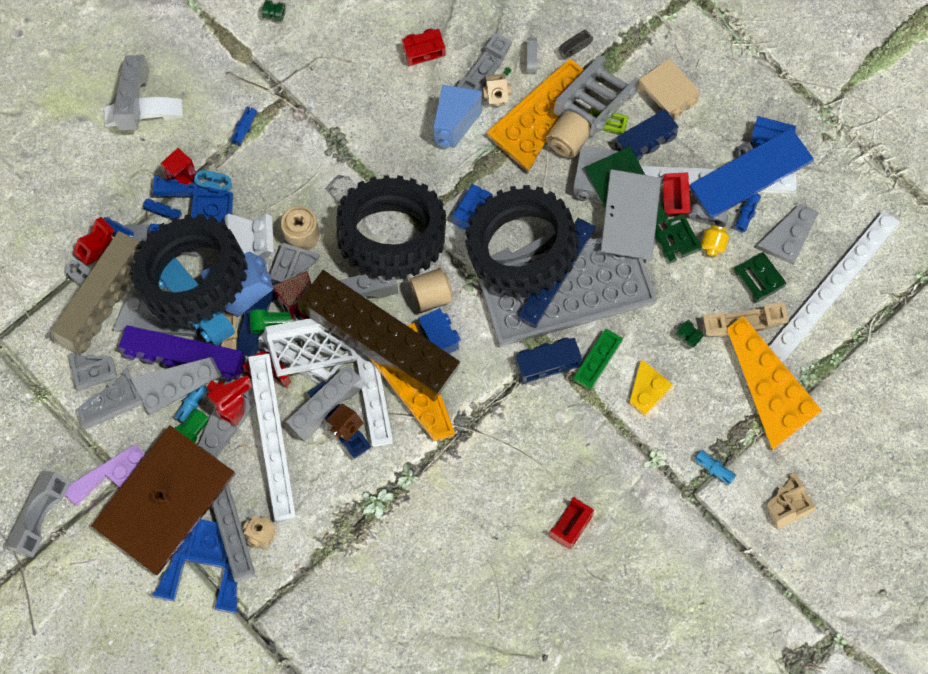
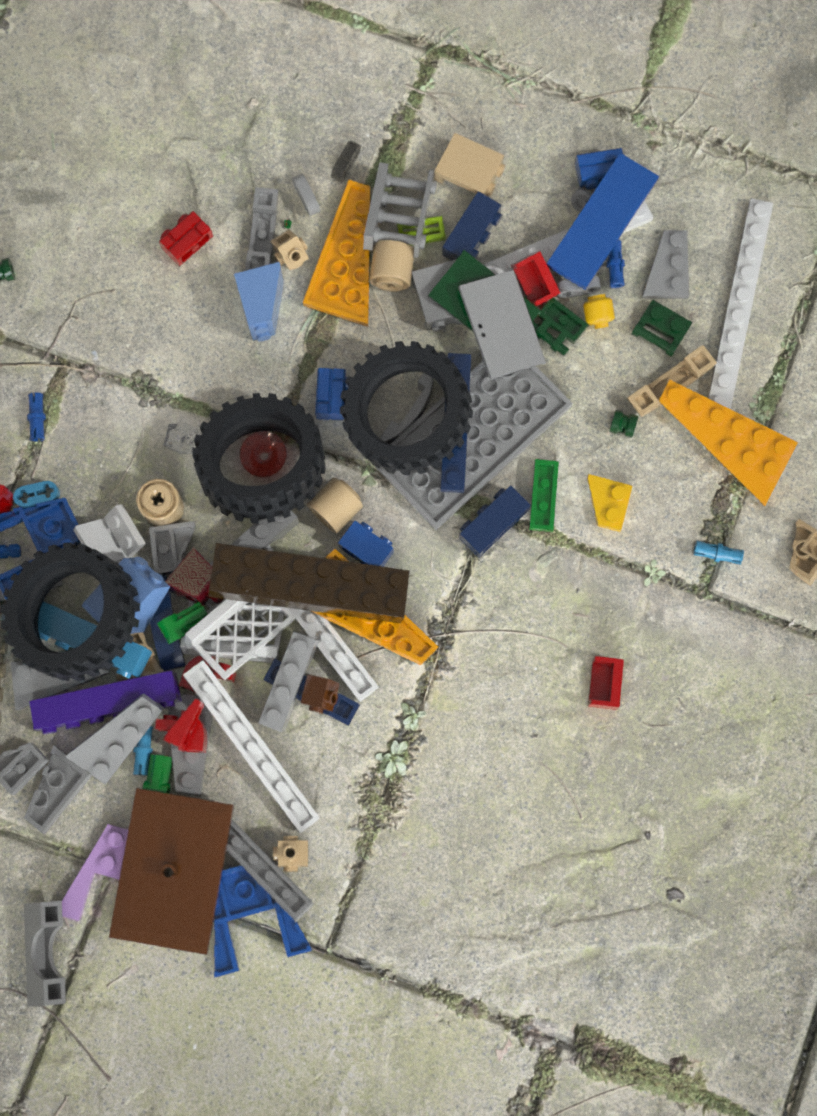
camera: 30 degrees left, 10 degrees up
(394, 221) = (260, 443): none -> clear red dish

